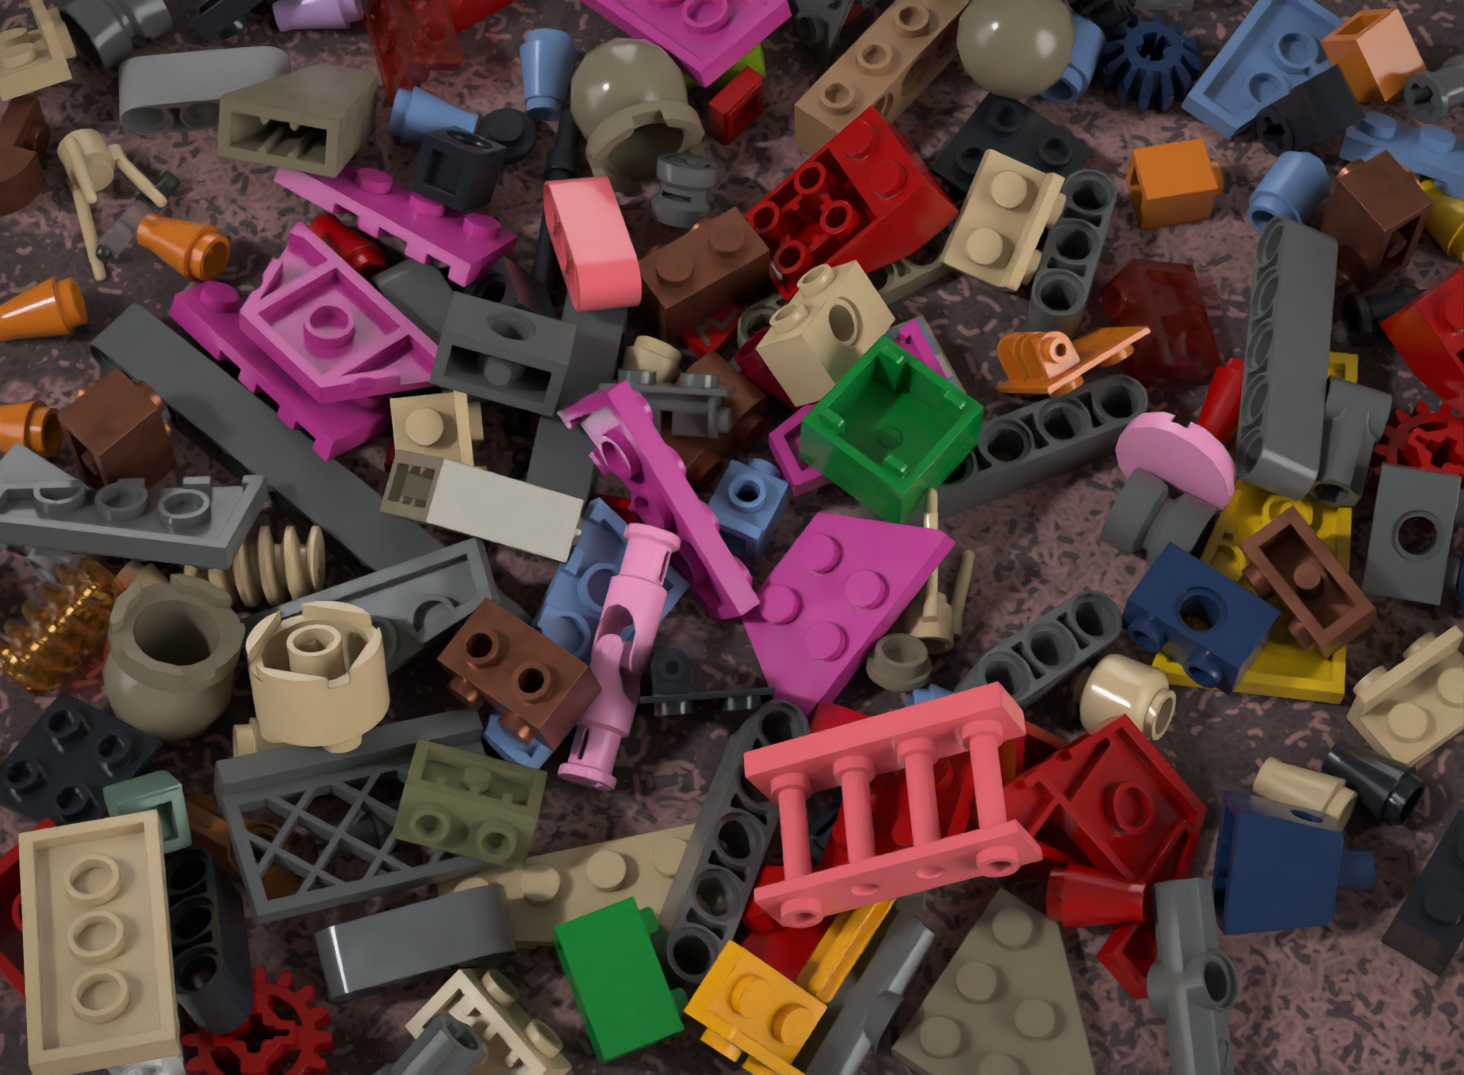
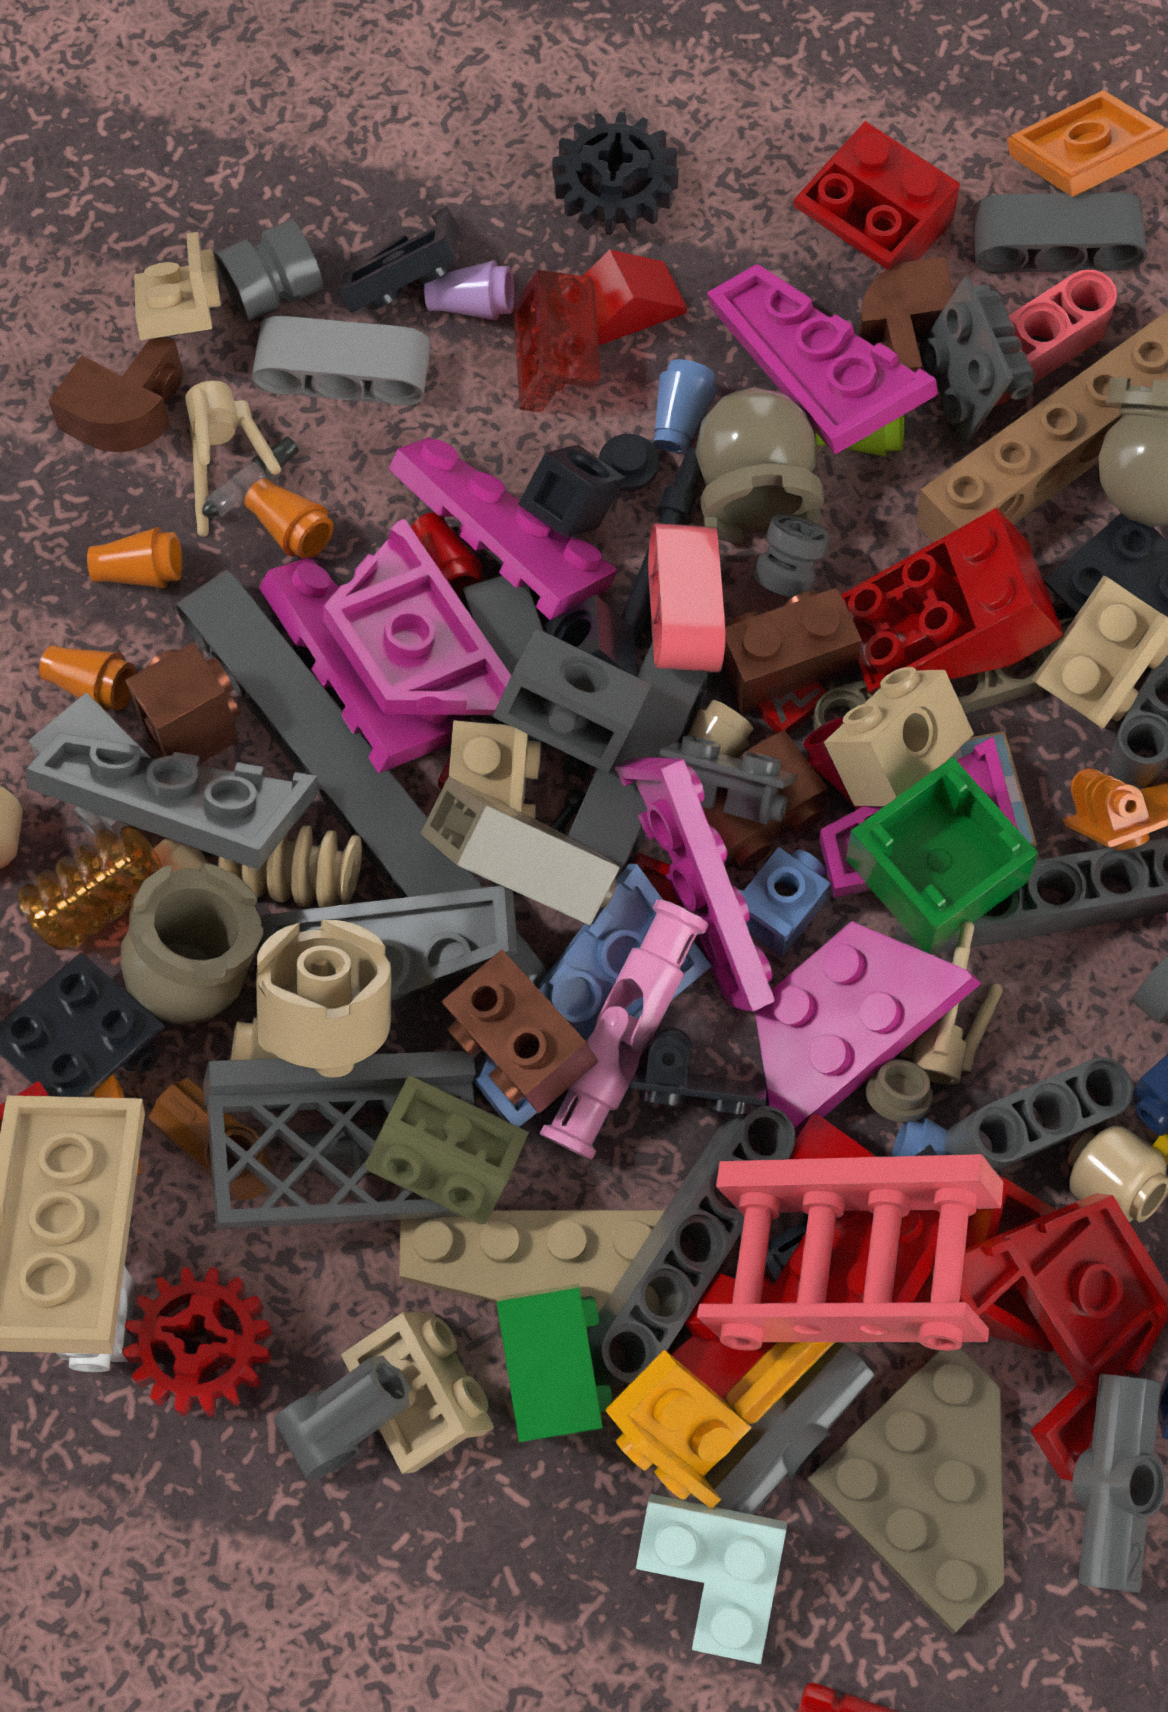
camera: 15 degrees right, 5 degrees up
(151, 792) = (145, 1079): sand green slope -> none
(208, 942) = (167, 1234): black beam -> none
(300, 119) = (426, 413): dark tan slope -> none
(415, 943) = (367, 1276): dark grey beam -> none
(423, 112) = (549, 427): medium blue cone -> none
(736, 106) = (863, 476): red tile -> none
(1092, 897) = (1040, 1373): red cone -> none

